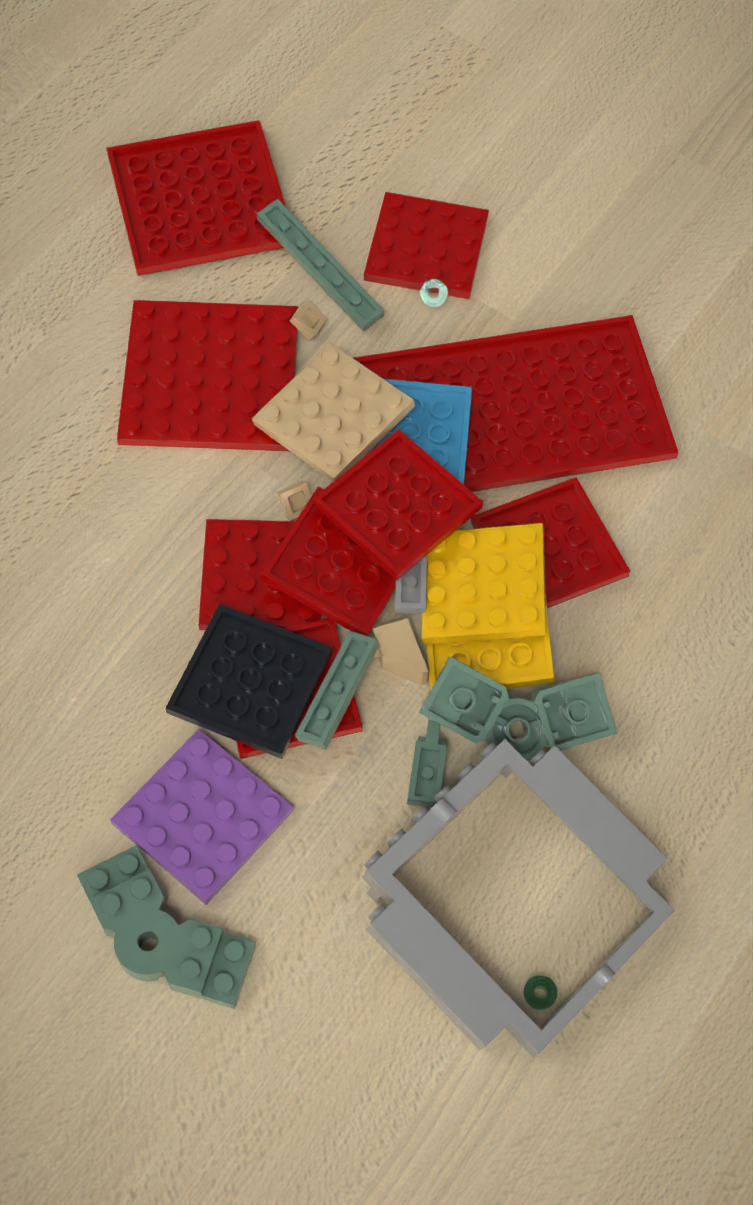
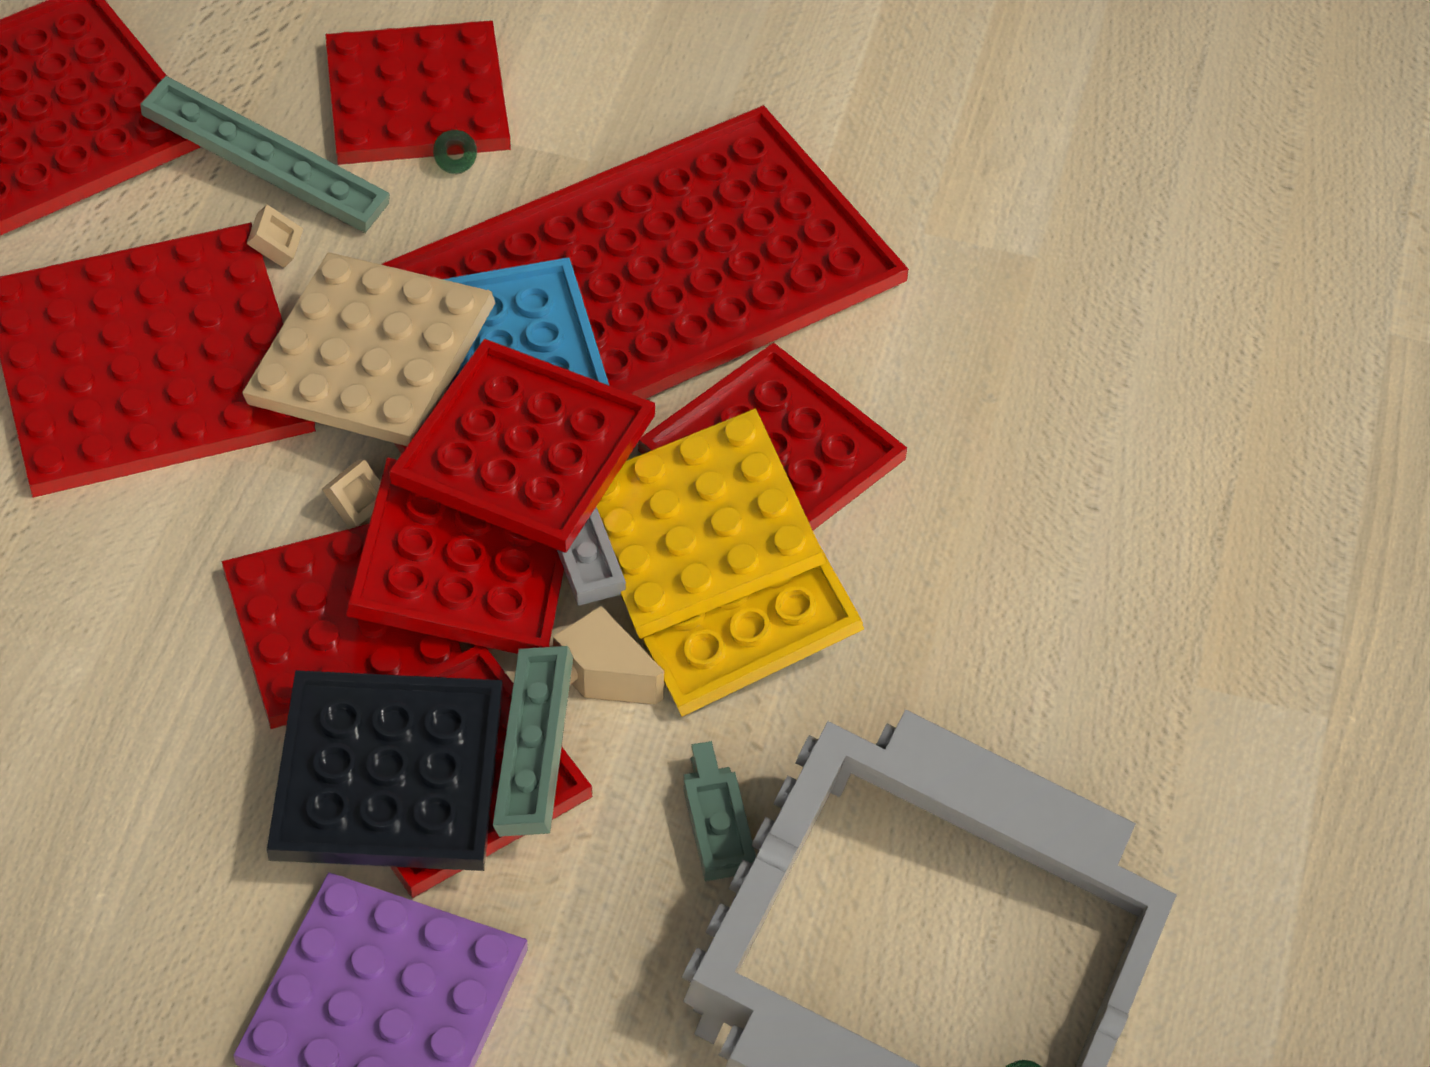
camera: 20 degrees left, 10 degrees down
(553, 716) = (769, 699): sand green plate -> none

